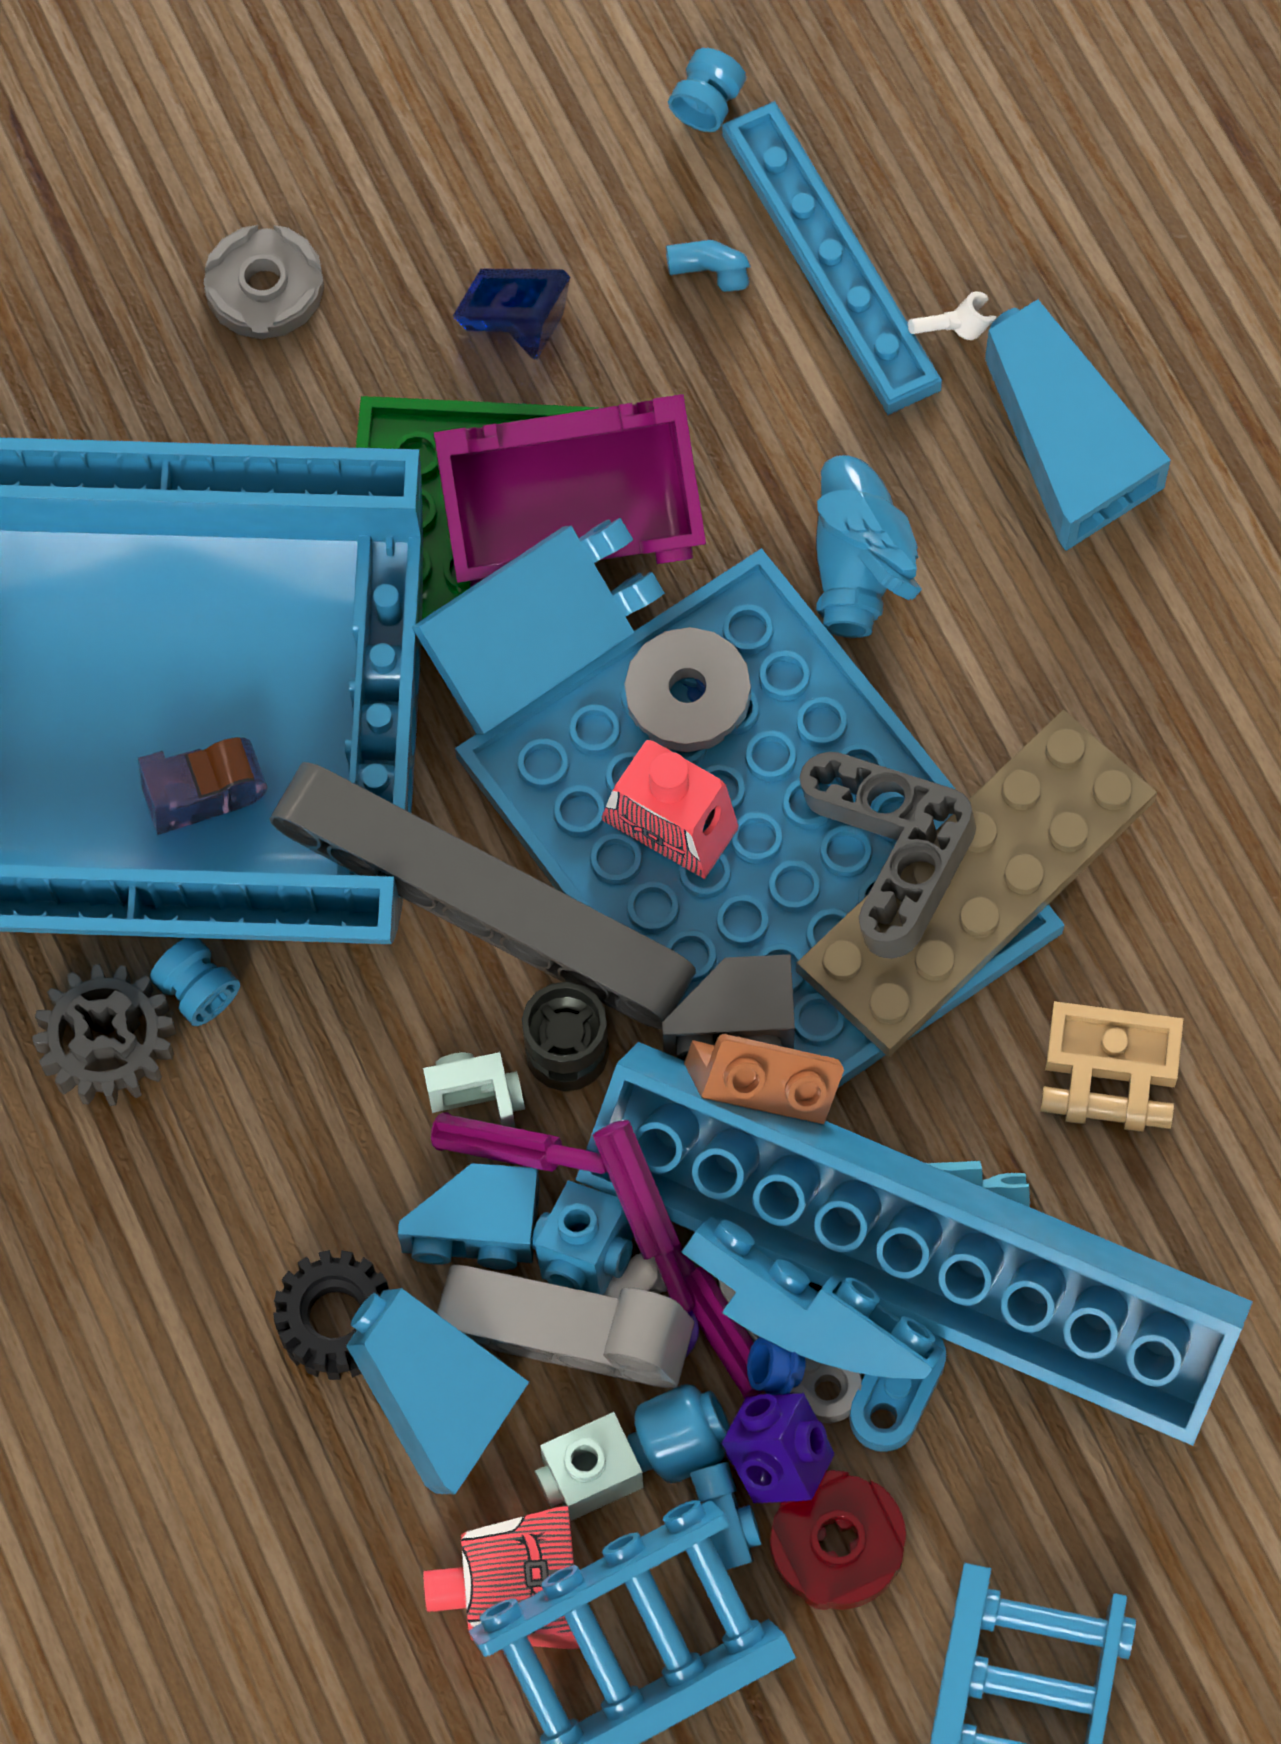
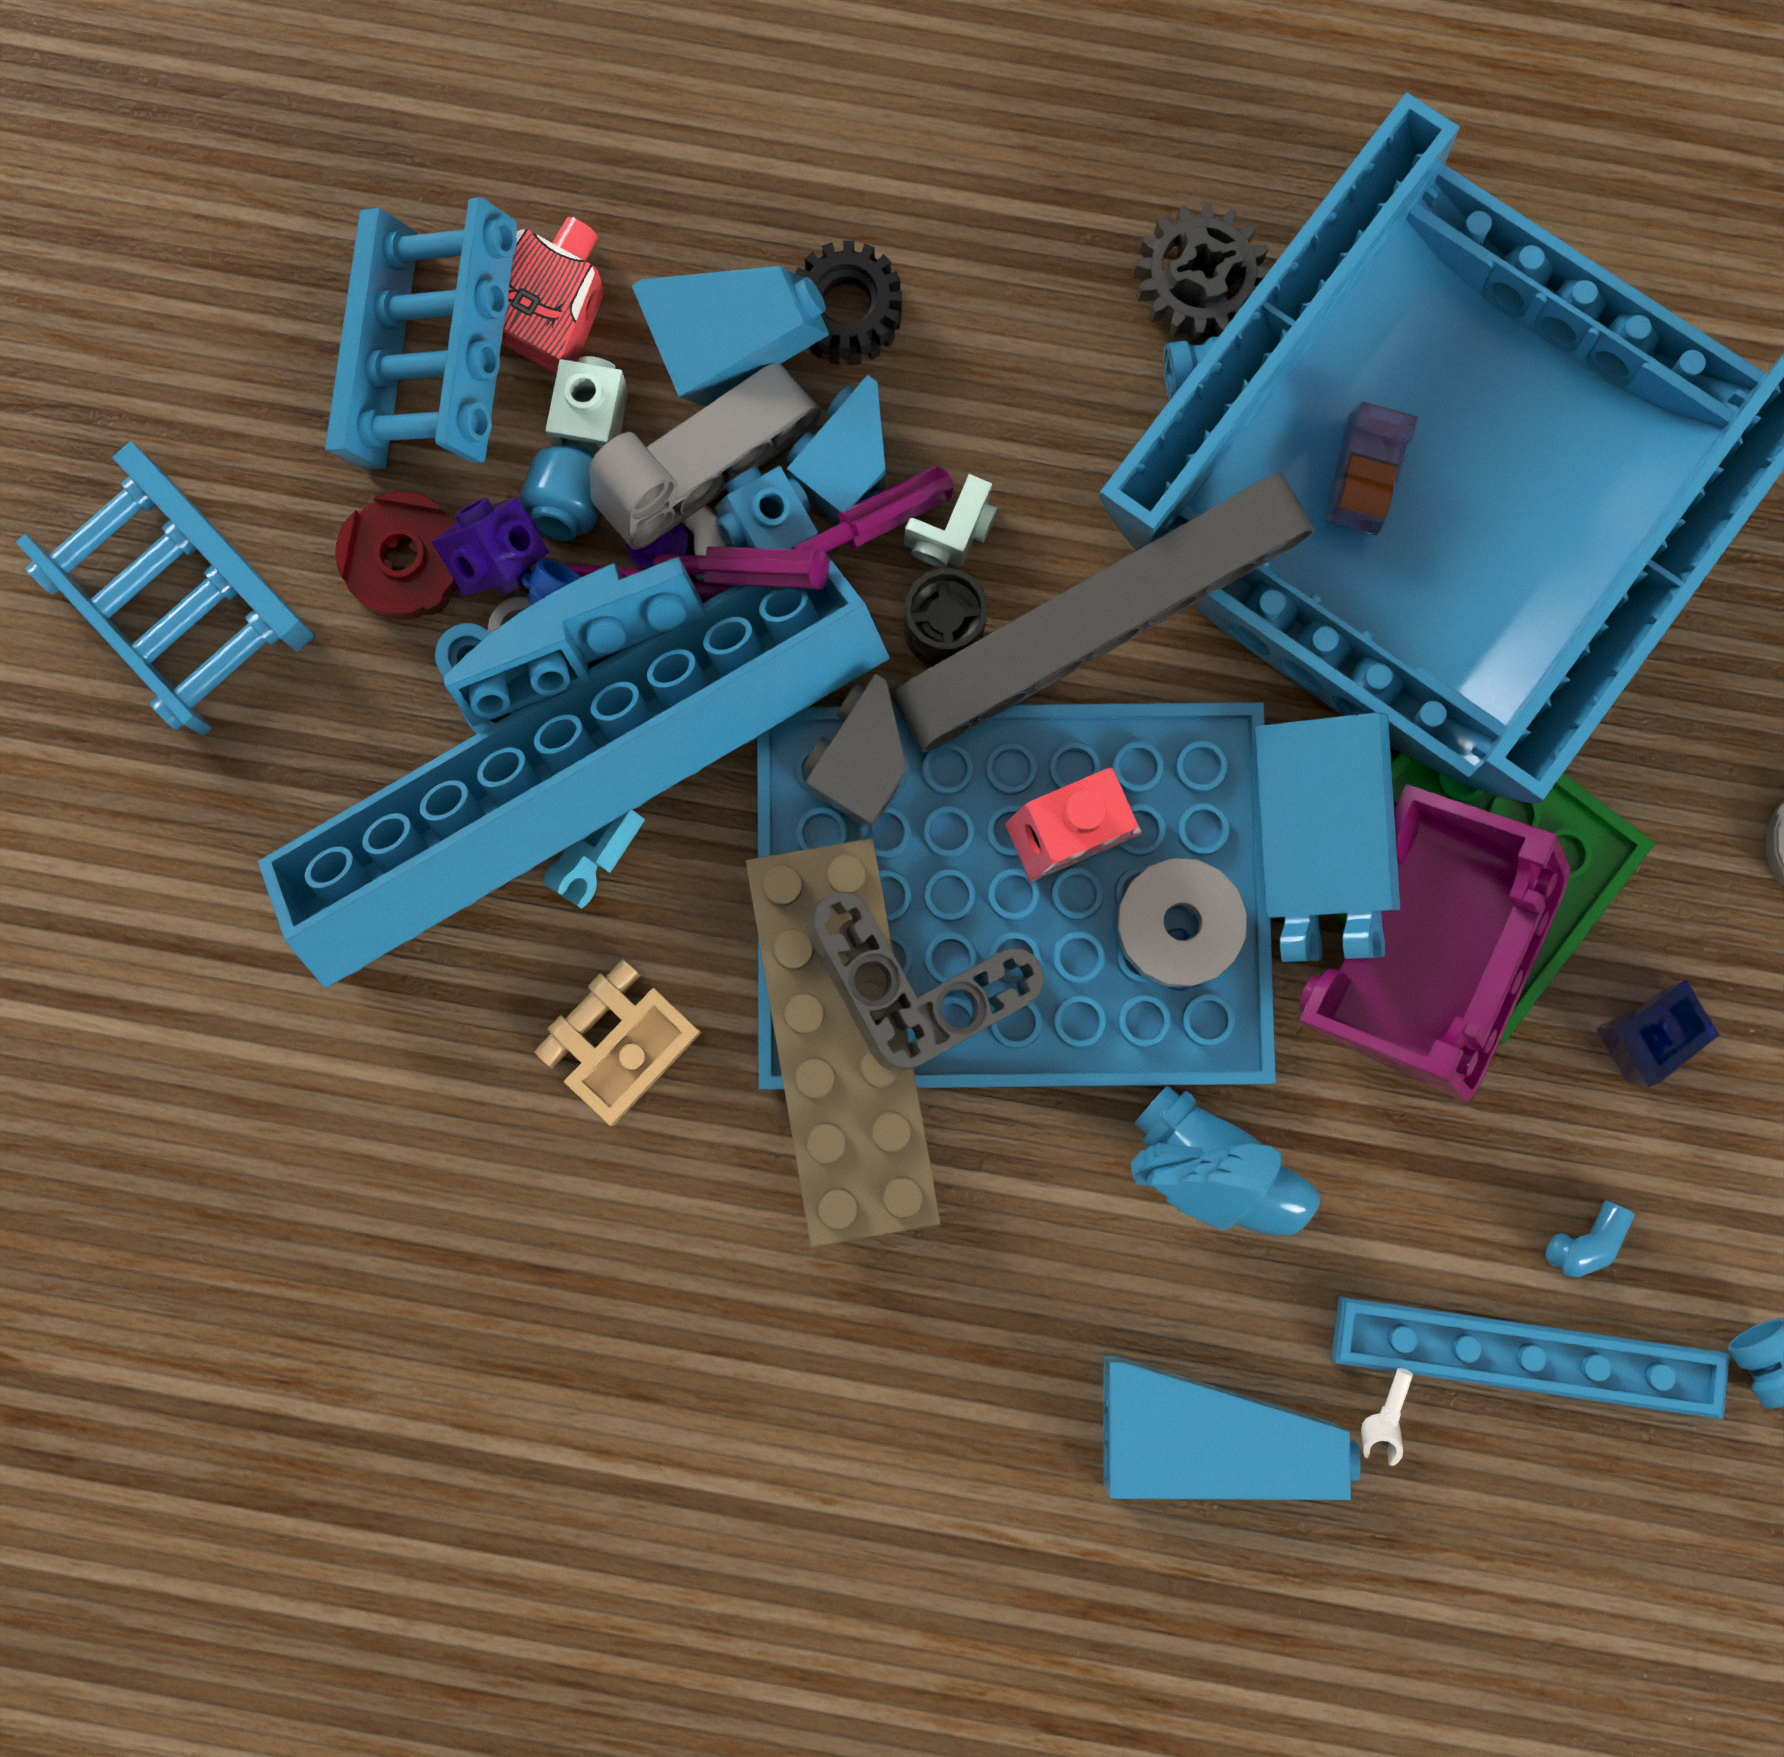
camera: 120 degrees right, 15 degrees up
(735, 1541) = (465, 482): dark azure plate -> none
(765, 1077) = (780, 723): nougat bracket -> none

